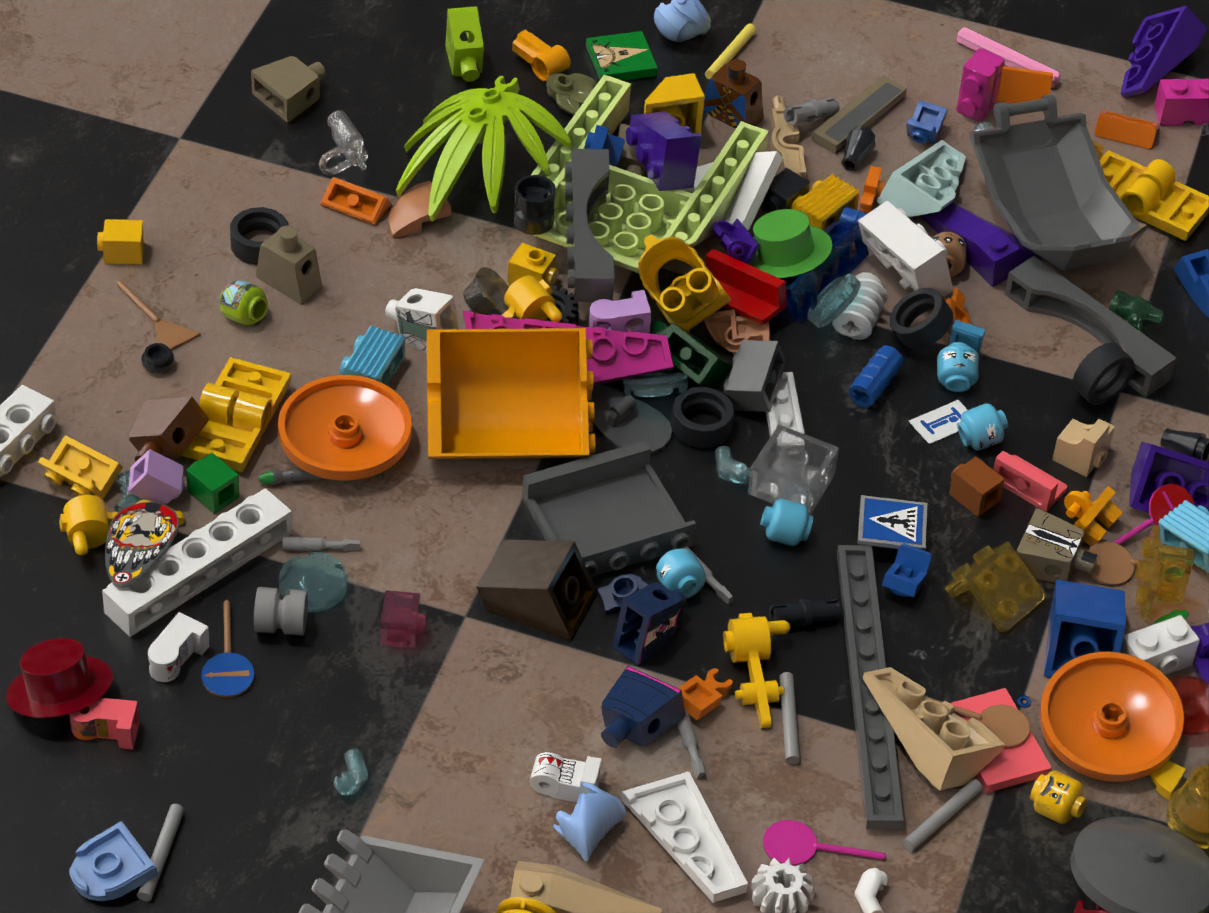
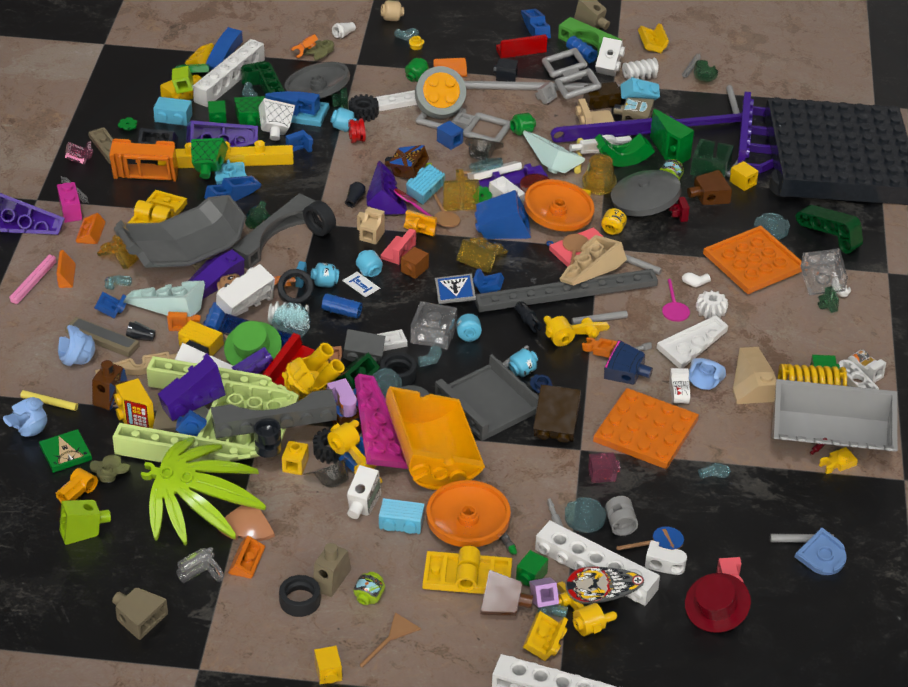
camera: 100 degrees left, 5 degrees down
(157, 358) = (430, 624): black plate -> none
(486, 711) = (646, 428): none -> orange plate
(647, 621) = (566, 366): dark blue torso -> none
(811, 111) = (111, 352): light grey pin -> none
(820, 70) = (77, 349): none -> light blue helmet
(980, 84) = (79, 278): dark pink brick -> none
(1054, 548) = (448, 234): dark tan torso -> none

